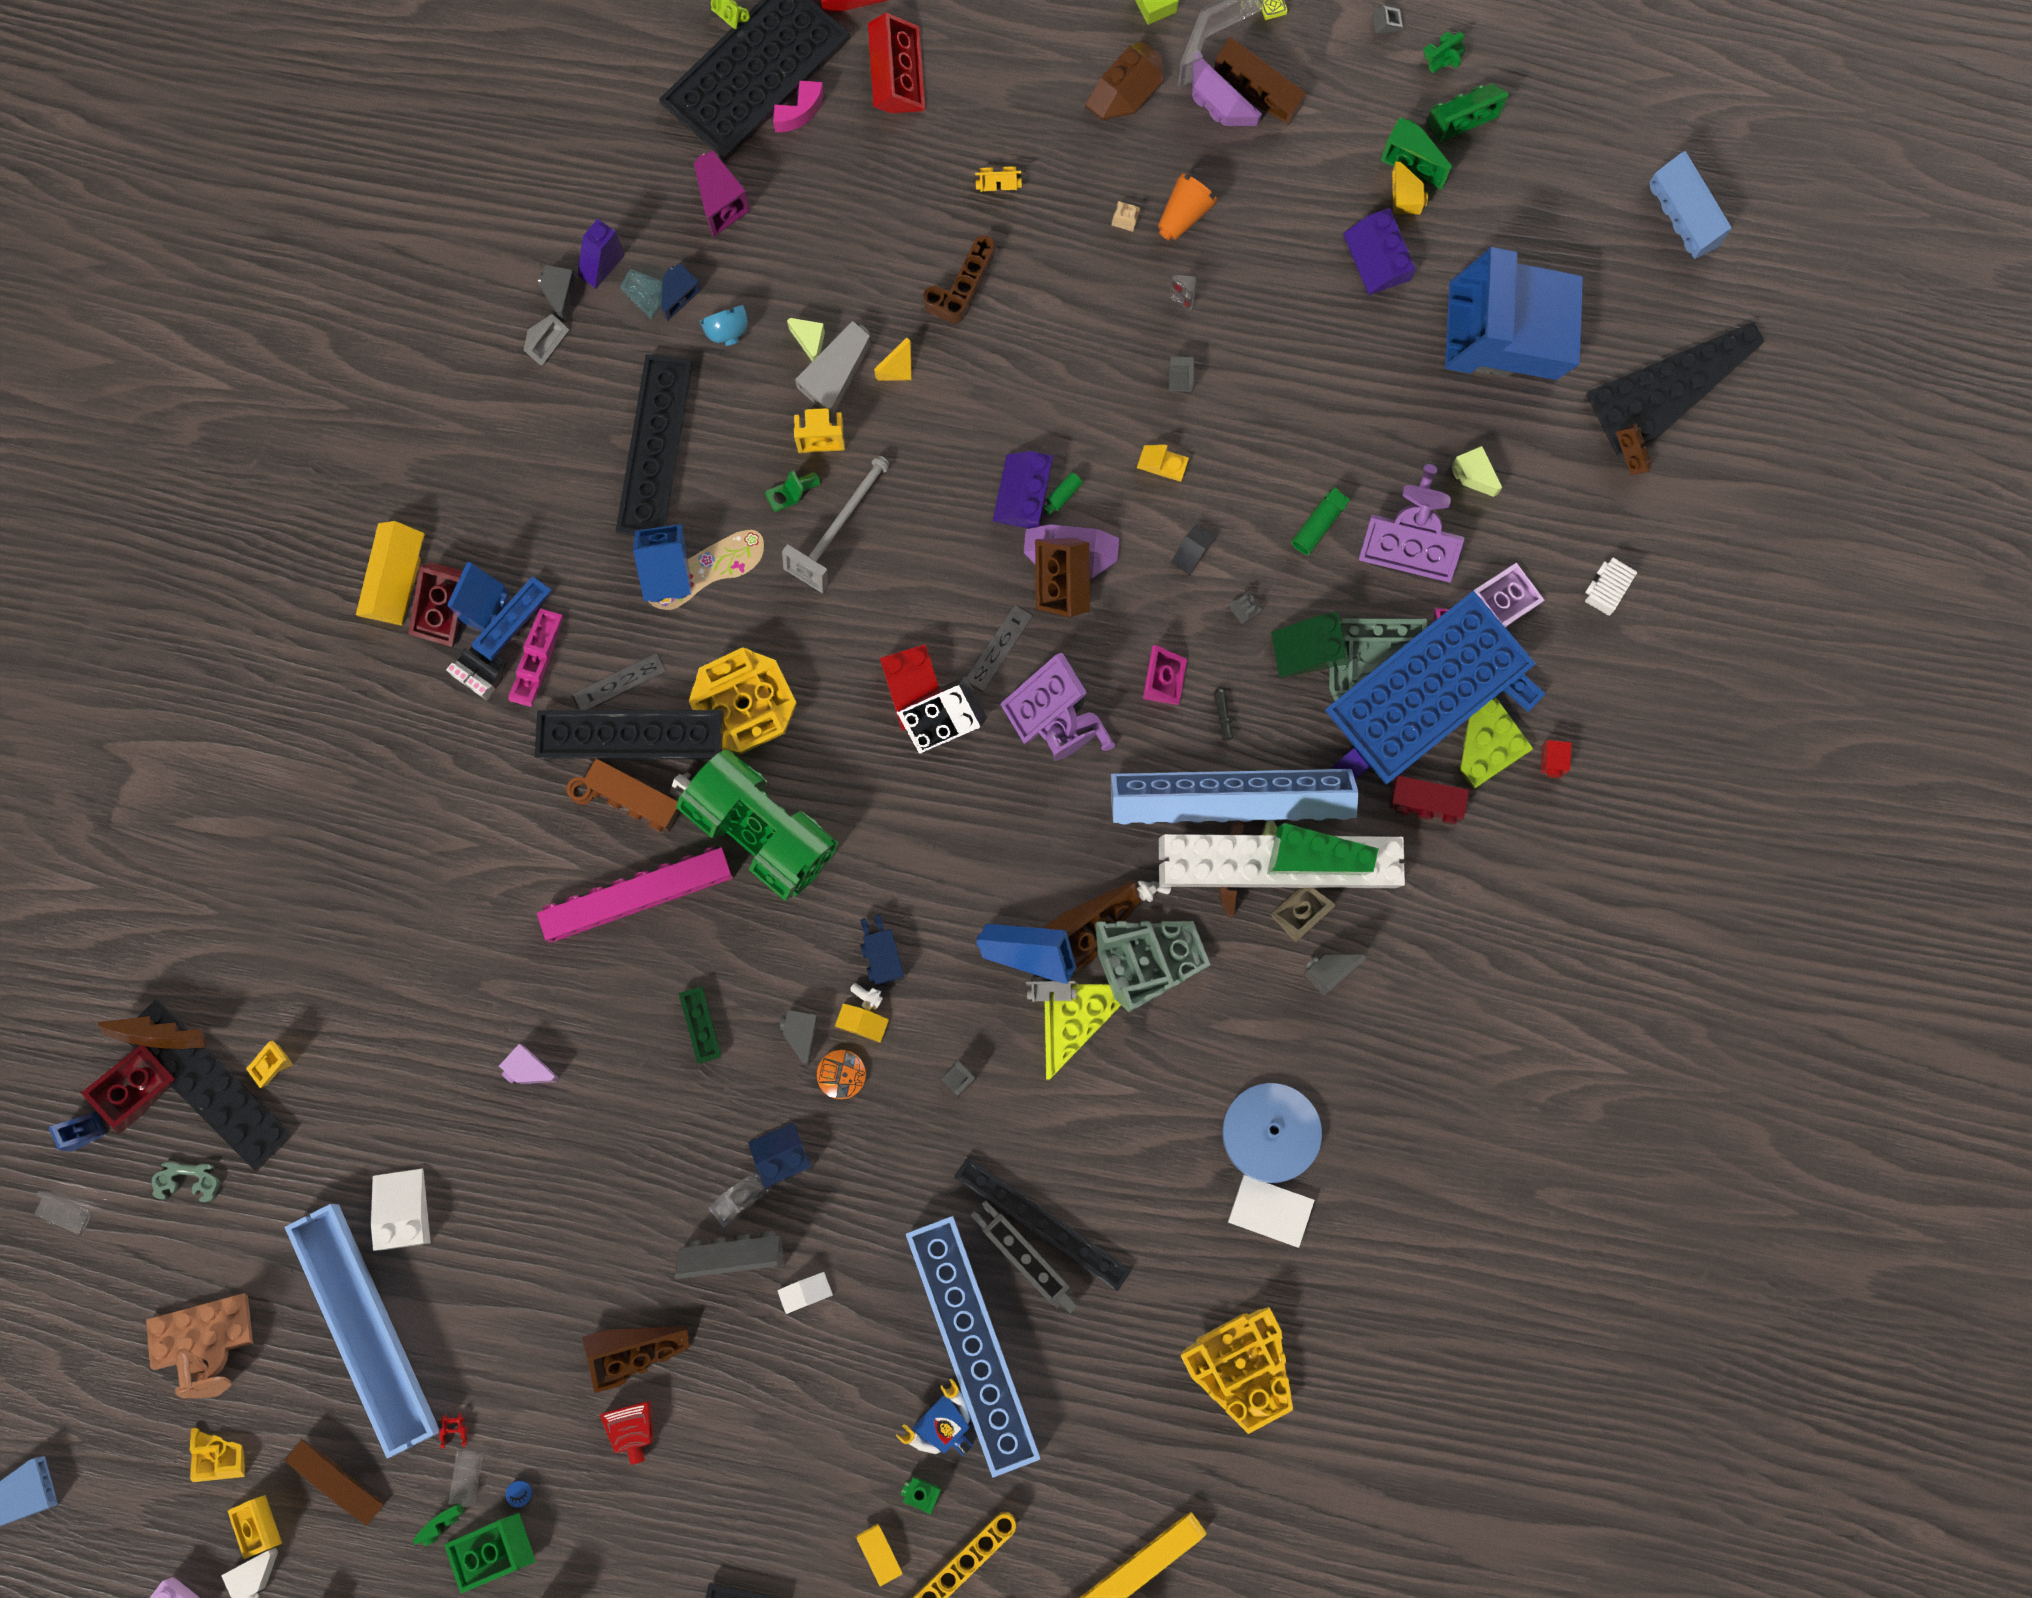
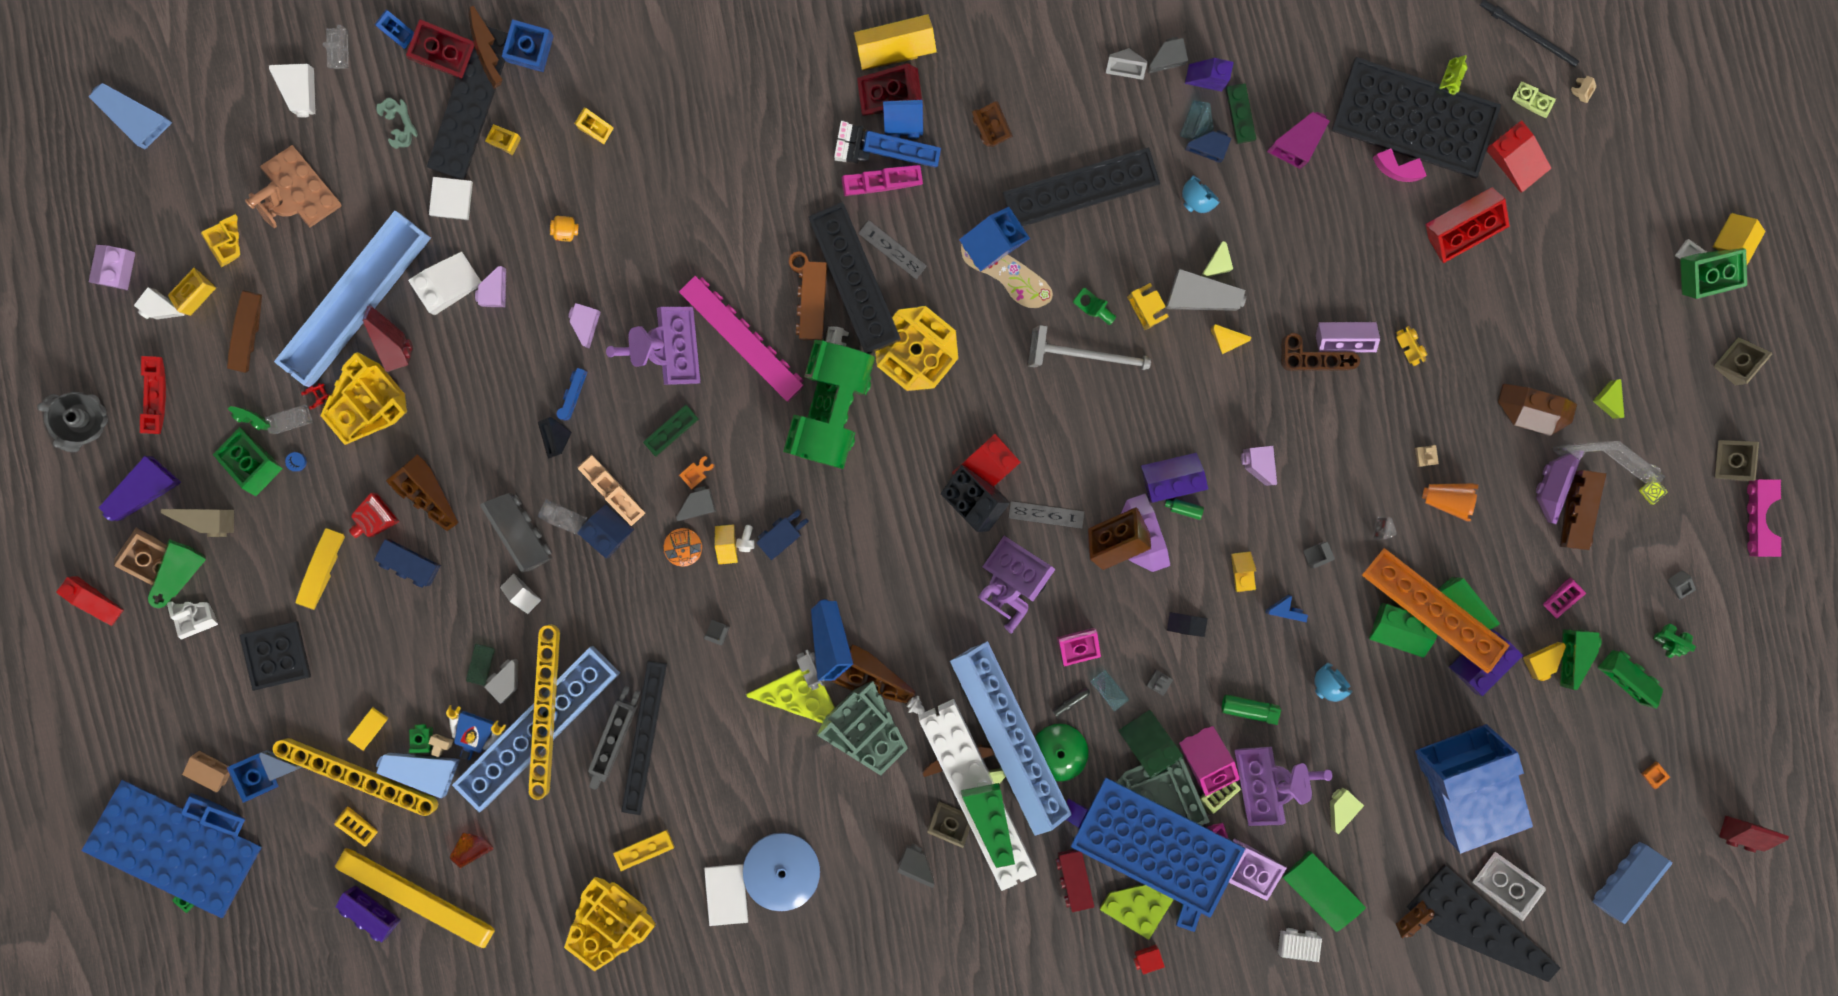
camera: 65 degrees right, 10 degrees up
(81, 1281) = (296, 87): none -> white slope
(177, 984) = (527, 45): none -> blue brick
(305, 1159) = (450, 198): none -> white tile
(308, 952) = (593, 126): none -> yellow slope
(406, 1041) = (563, 228): none -> light orange head
(435, 1158) = (492, 289): none -> lavender slope
(435, 1305) = (388, 340): none -> dark red slope
(487, 1375) = (363, 400): none -> yellow wedge
(535, 509) = (992, 124): none -> reddish brown bracket
(599, 980) = (673, 343): none -> medium lavender plate
(602, 1121) = (571, 395): none -> blue plate
(640, 1166) = (554, 436): none -> black slope
(658, 244) = (1241, 113): none -> dark green plate
(660, 1523) = (319, 569): none -> yellow slope
(704, 1412) = (407, 563): none -> dark blue brick
(735, 1127) = (611, 490): none -> light nougat slope
(764, 1021) = (695, 474): none -> orange plate
(866, 1380) = (480, 664): none -> clear green plate
(900, 1359) = (504, 683): none -> light grey slope
(938, 1473) = (440, 744): none -> tan tile
(956, 238) = (1347, 337): none -> lavender brick
(962, 1511) = (420, 772): none -> light blue slope
(964, 1331) = (540, 720): none -> yellow beam
(1051, 388) = (1260, 463): none -> lavender slope
(1080, 1497) = (469, 849): none -> clear red slope
(1175, 1284) = (643, 850): none -> yellow plate
(1224, 438) = (1282, 609): none -> blue slope
(1229, 667) = (1109, 690): none -> clear light blue slope
(1258, 743) = (1066, 739): none -> green dish
(1298, 275) = (1436, 610): none -> orange plate
(1306, 320) = (1402, 631): none -> green slope
(1309, 244) = (1463, 595): none -> green slope
(1331, 423) = (1331, 684): none -> dark azure cylinder
(1347, 124) = (1568, 602): none -> dark pink slope
(1358, 589) = (1209, 760): none -> dark pink slope
(1407, 611) = (1218, 804): none -> yellowish green slope
(1560, 534) = (1323, 891): none -> green slope
(1583, 134) = (1655, 775): none -> orange tile
(1639, 334) = (1509, 886): none -> white slope
(1690, 62) = (1750, 835): none -> dark red slope

